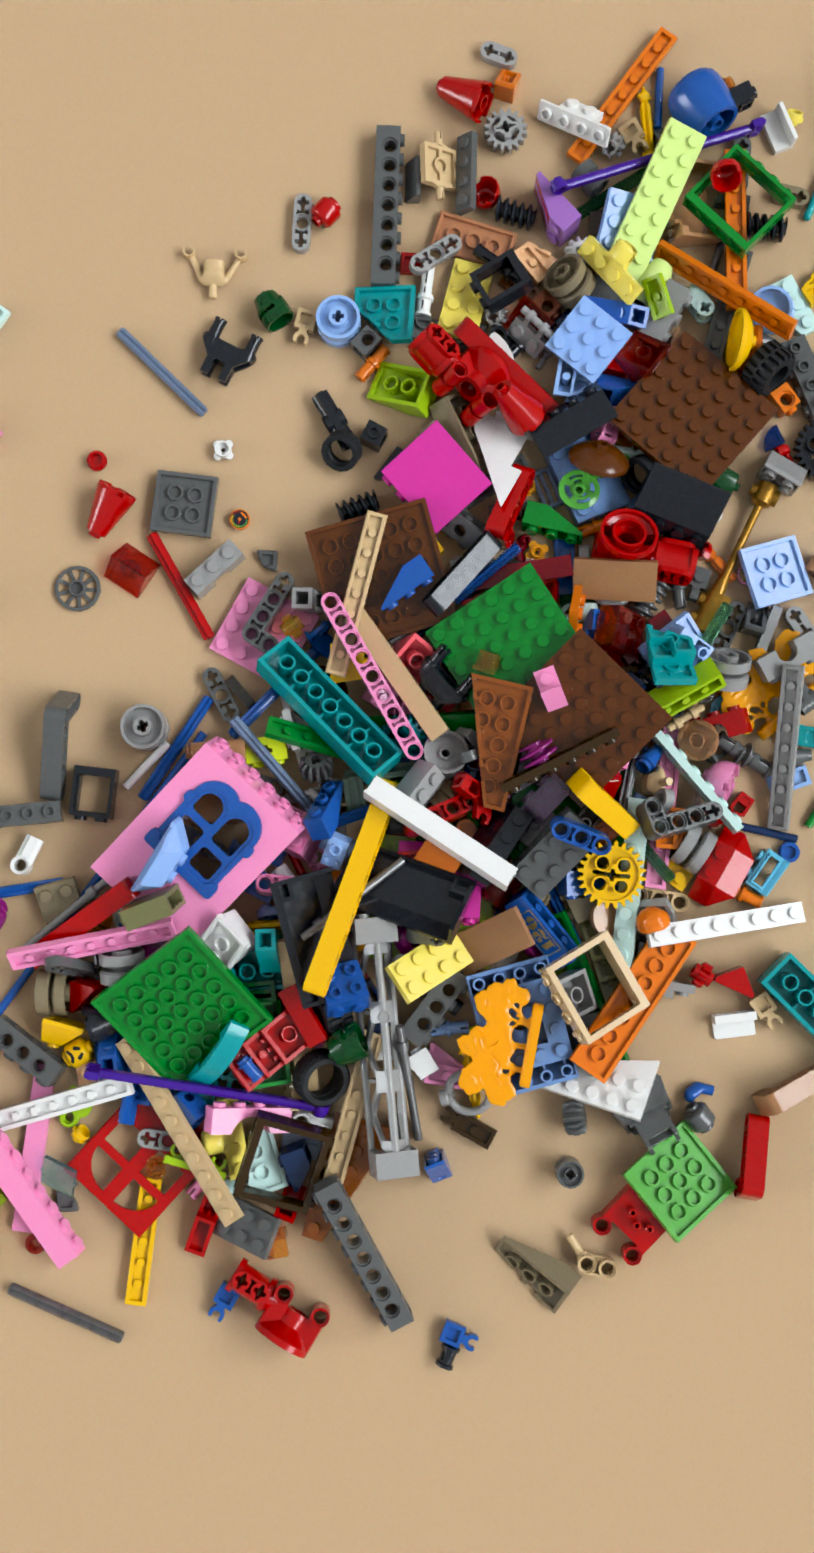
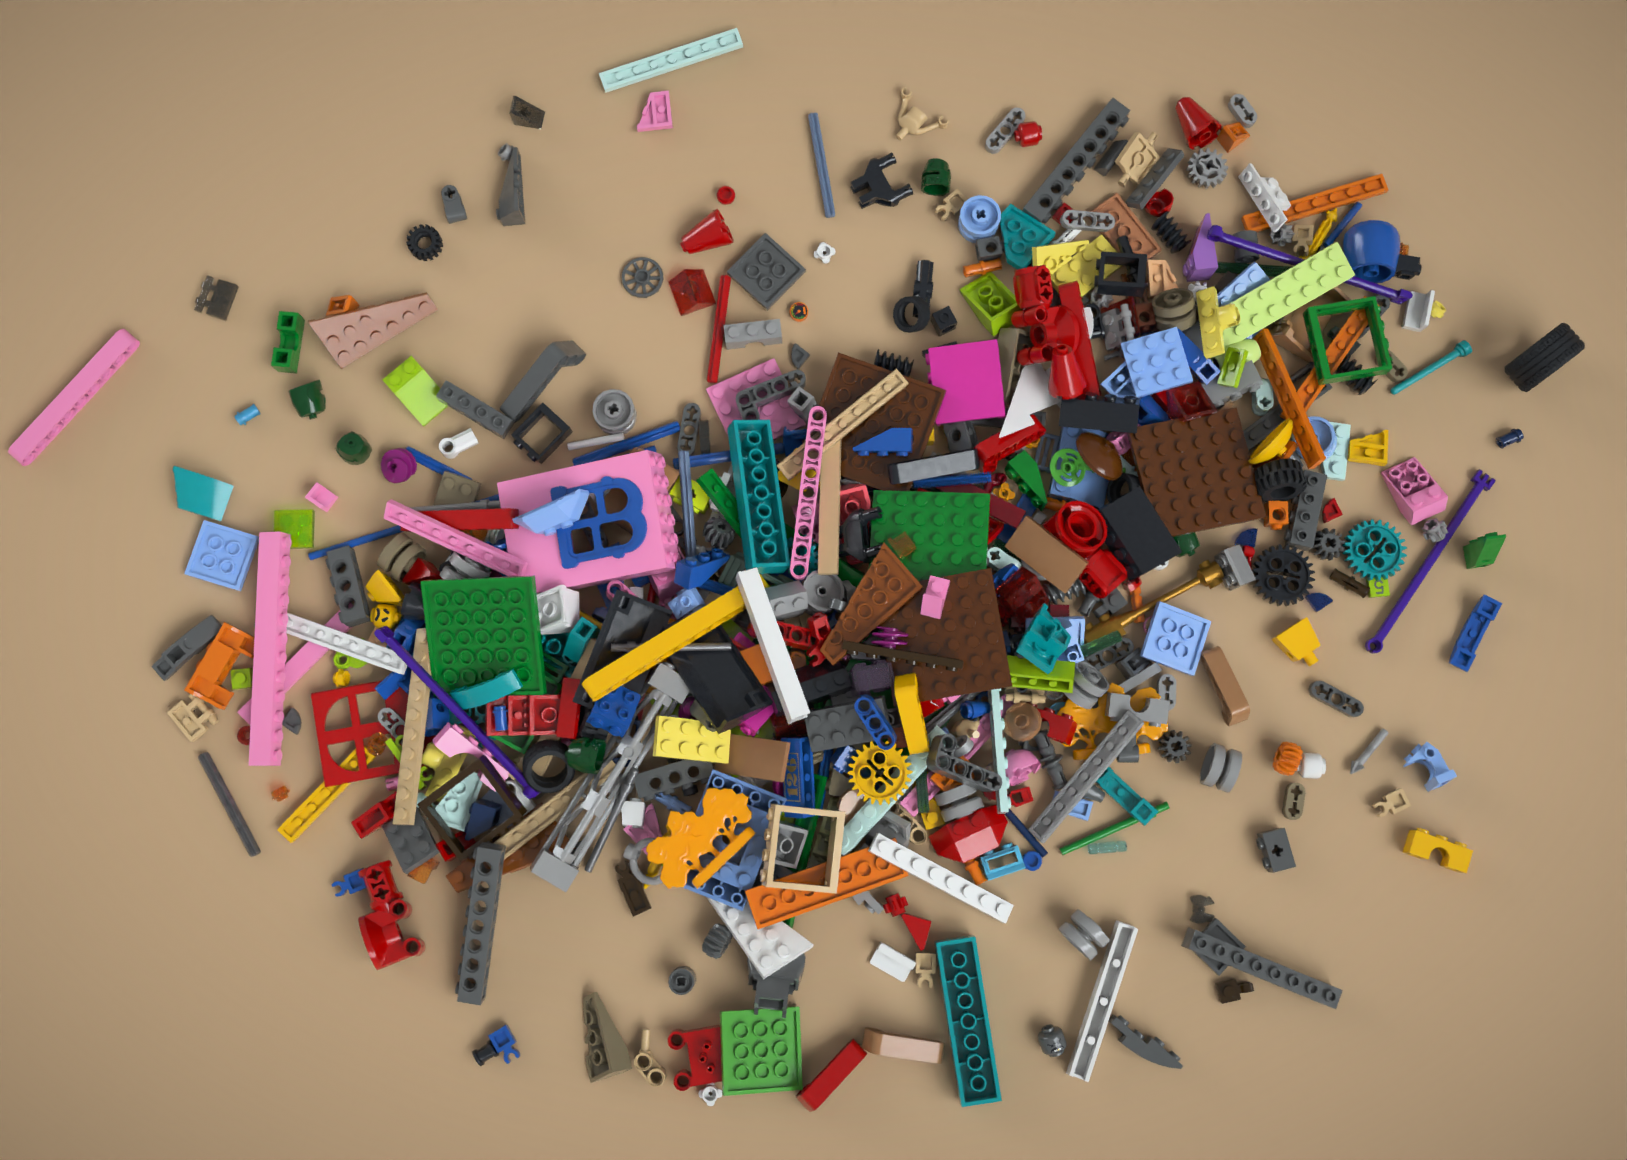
camera: 30 degrees right, 5 degrees down
(59, 1176) = (301, 697): clear light blue piece -> none
(69, 966) = (426, 545): dark grey beam -> none
(104, 1271) = (280, 794): none -> clear orange plate
(152, 907) = (518, 544): olive brick -> none
(292, 626) = (778, 416): clear yellow gear -> none
(430, 305) = (1056, 254): none -> light yellow wing
(437, 1165) = (586, 899): blue slope -> none
(576, 610) = (999, 554): orange plate -> none
(652, 920) = (886, 831): orange piece -> none
(666, 1251) = (710, 1099): none -> white plate
(696, 1089) = (826, 990): blue arm -> none
(699, 1117) = (813, 1013): dark grey head -> none
(726, 175) = (1349, 313): red hair -> none

